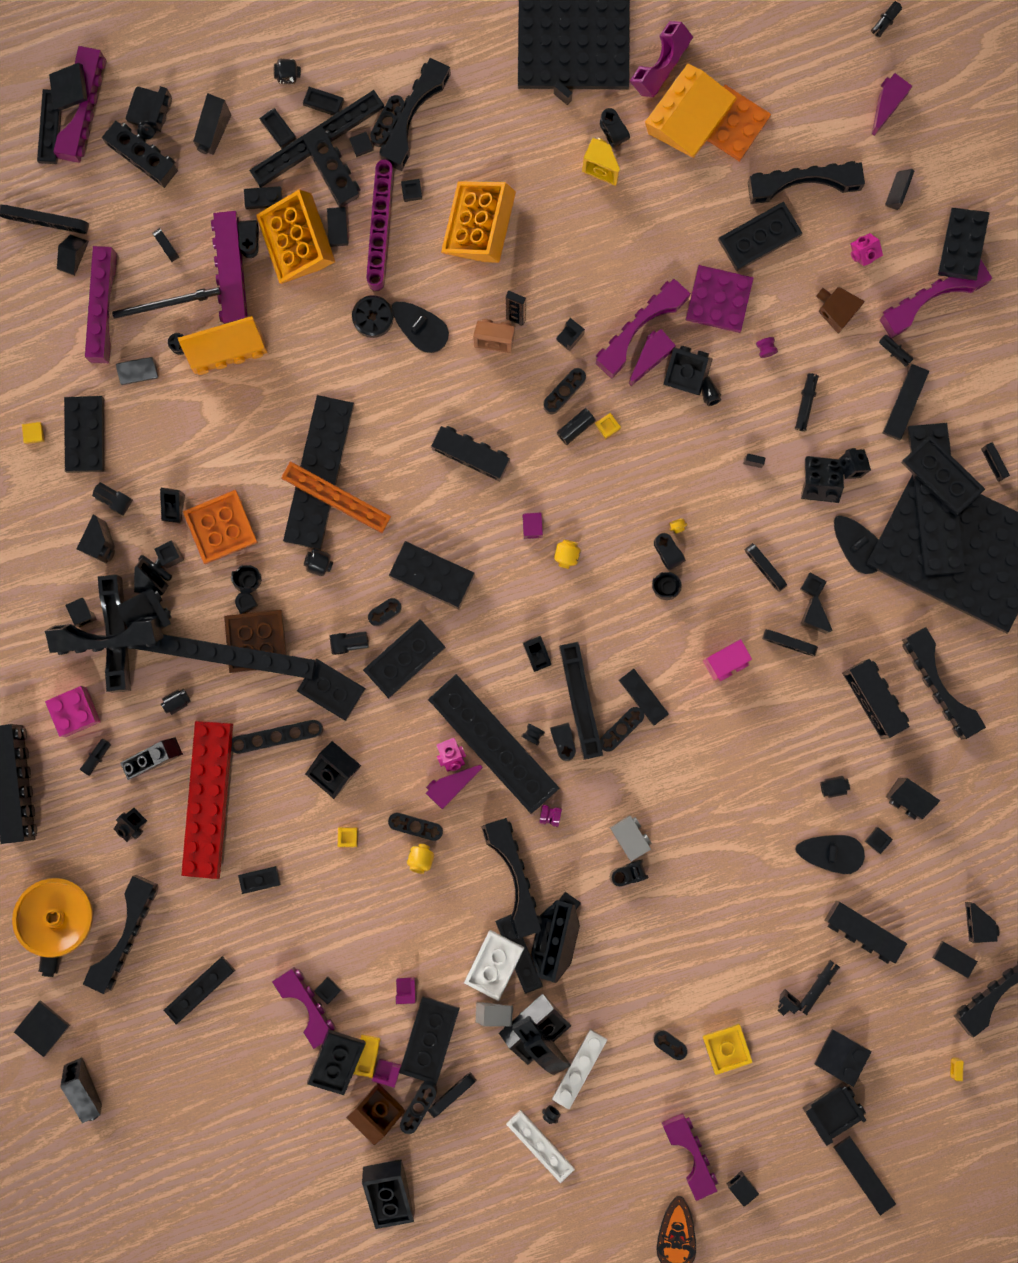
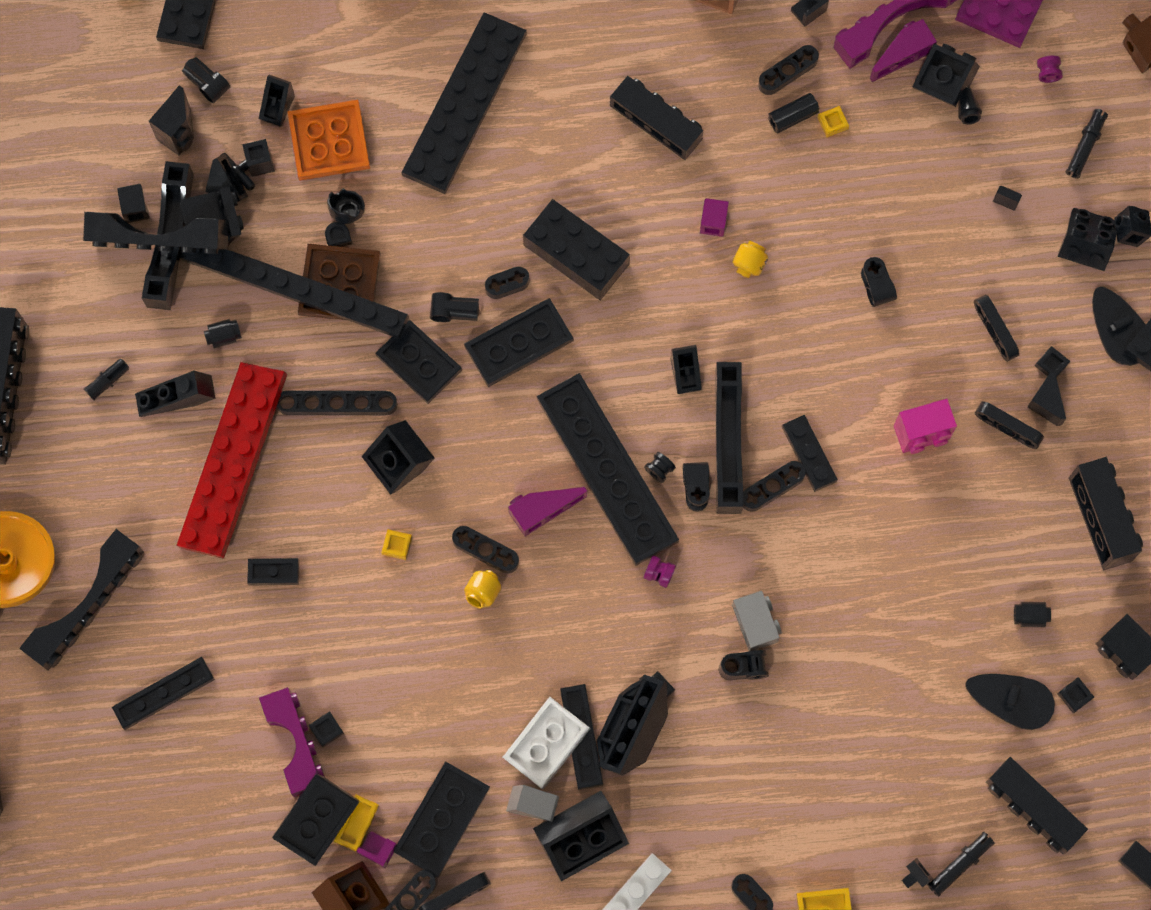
camera: 10 degrees right, 10 degrees down
(72, 711) = (93, 317): dark pink brick -> none
(130, 825) = (129, 467): black brick -> none
(318, 562) = (438, 205): black head -> none
(335, 497) = (479, 133): orange tile -> none
(406, 990) = (426, 751): magenta panel -> none
(451, 755) = (552, 473): dark pink brick -> none
(523, 918) = (589, 586): black arch -> none
(539, 1047) = (584, 853): black slope -> none
(666, 586) = (866, 323): black hair -> none
(678, 525) = (896, 255): yellow plate -> none

